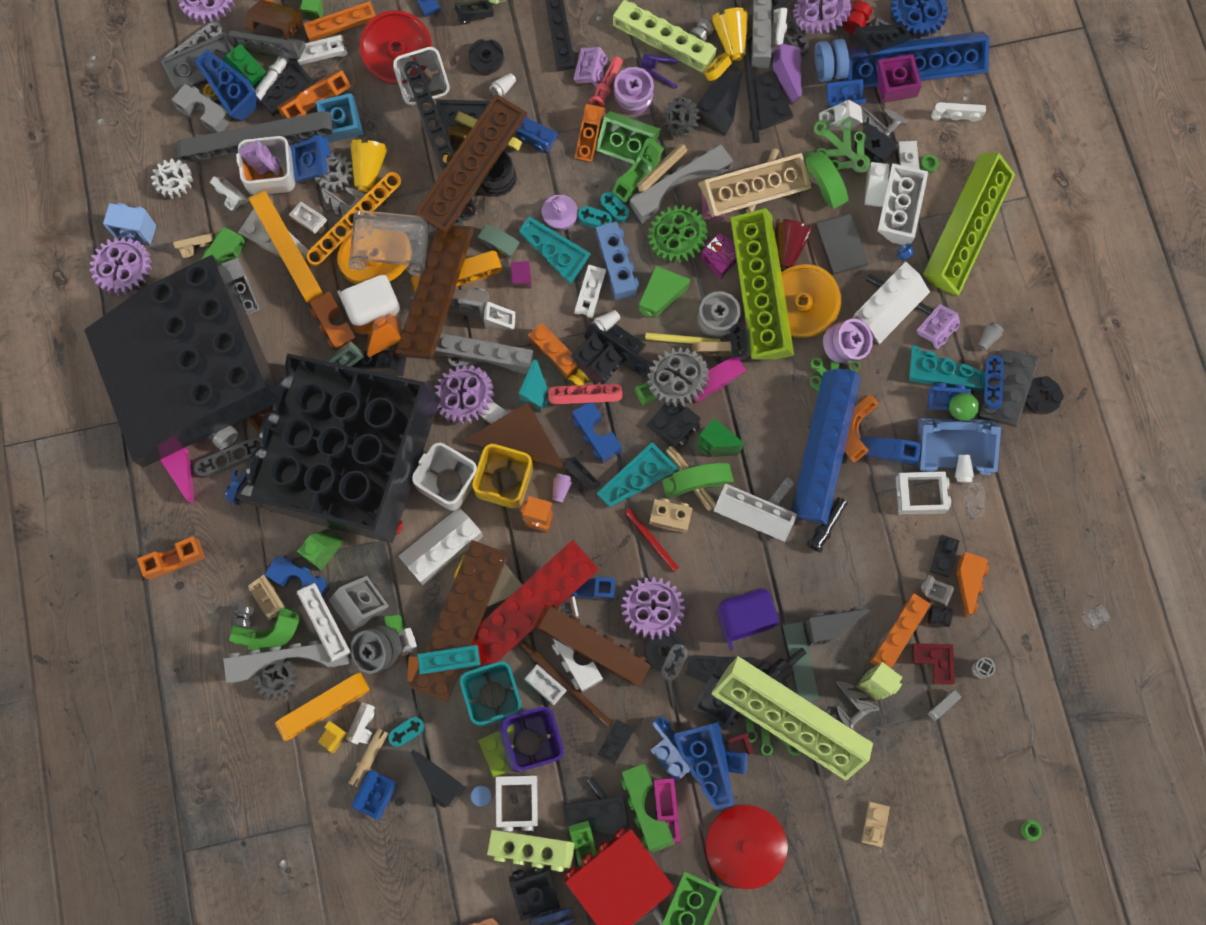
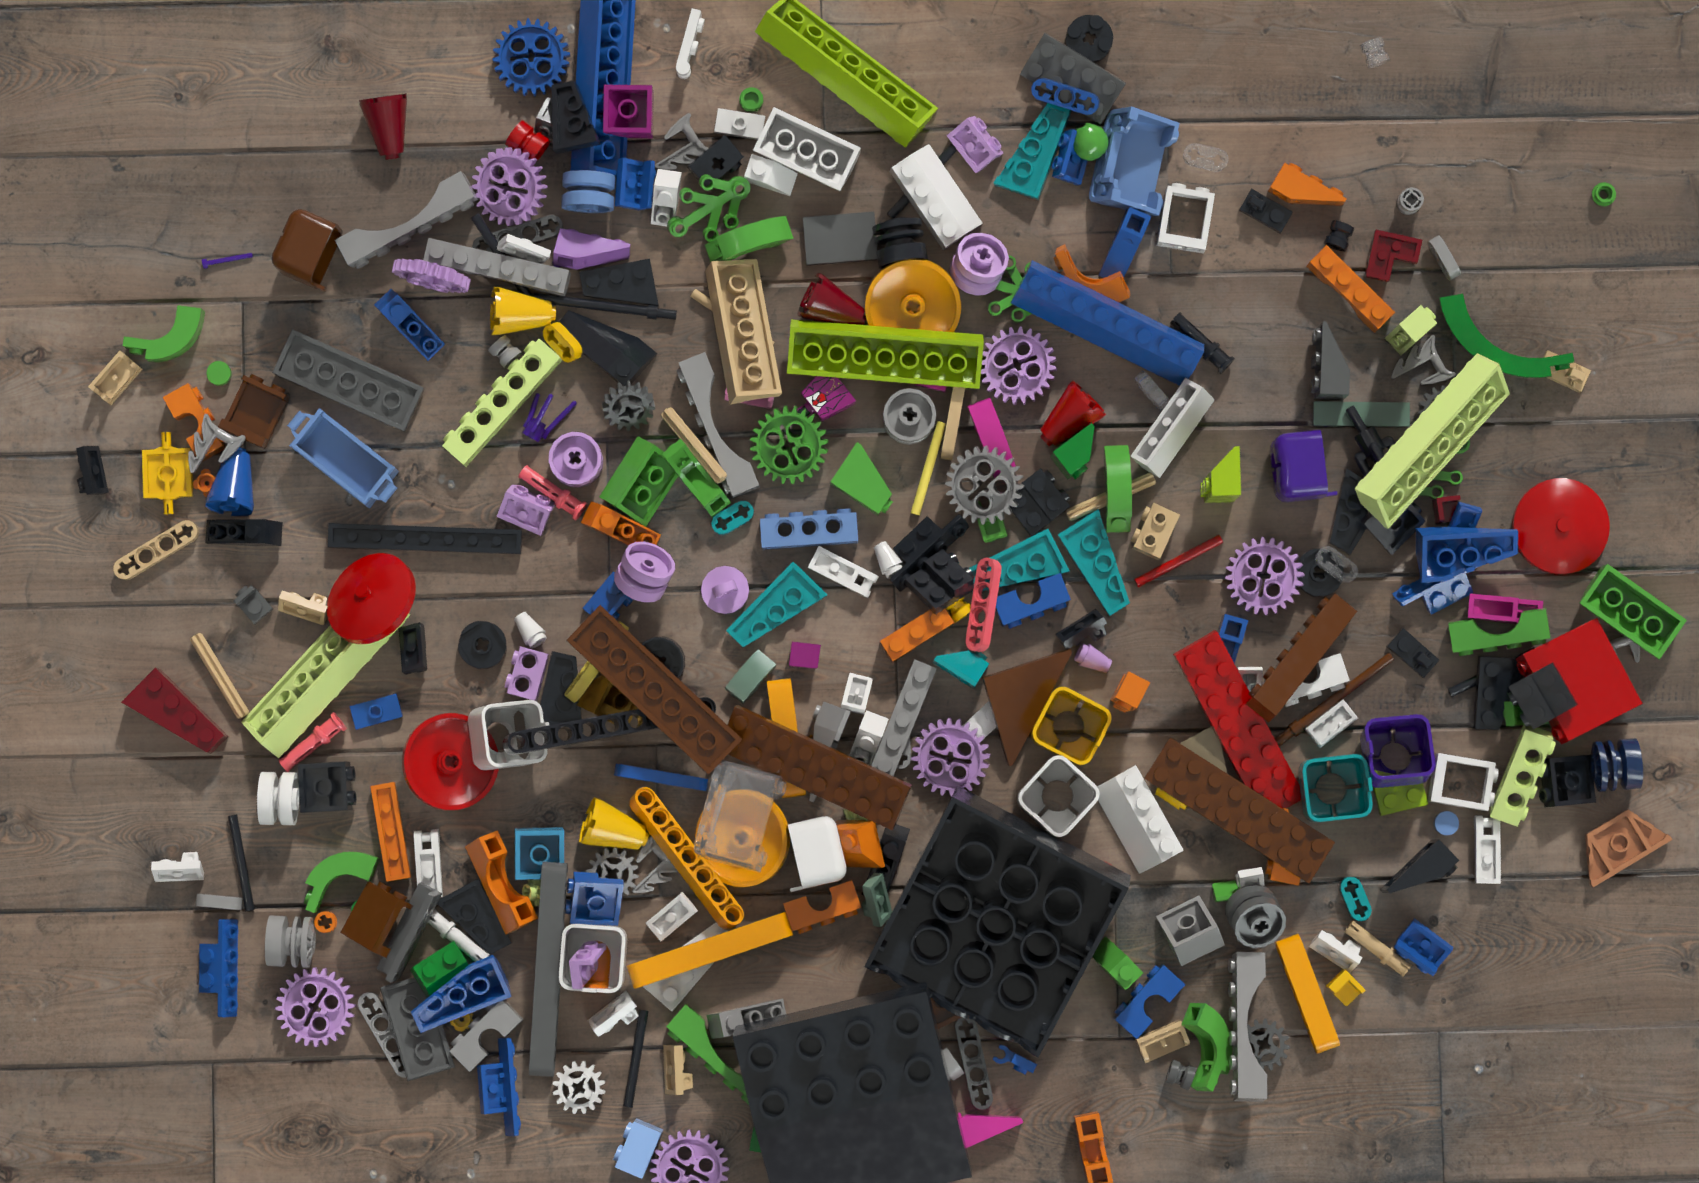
camera: 80 degrees left, 10 degrees up
(162, 123) = (498, 1087): none -> blue bracket
(200, 215) = (635, 1058): none -> black bar
(323, 622) = (1211, 974): white tile -> none
(411, 186) = (661, 777): none -> blue beam
(448, 659) = (1288, 830): teal tile -> none
(463, 834) = (1487, 851): none -> white plate
(467, 328) = (868, 737): none -> white slope
(471, 84) = (533, 675): none -> lavender brick
(560, 147) = (644, 572): none -> lavender wheel
(595, 217) = (747, 549): teal beam -> none
(598, 850) = (1542, 696): none -> black plate
(626, 424) = (1028, 560): none -> teal wing
(724, 555) = (1224, 481): none -> lime slope
(740, 341) = (955, 398): black beam -> none
(751, 432) = (1070, 415): none -> red cone
(789, 379) = (1026, 385): none -> lavender gear
(852, 280) = (899, 238): none -> black wheel
(885, 737) = (1474, 342): none -> green arch
(905, 252) = (869, 161): blue plate -> none
(936, 591) = (1308, 232): light grey bracket -> none
(964, 469) = (1166, 160): white cone -> none
(990, 335) = (1001, 84): light grey cone -> none

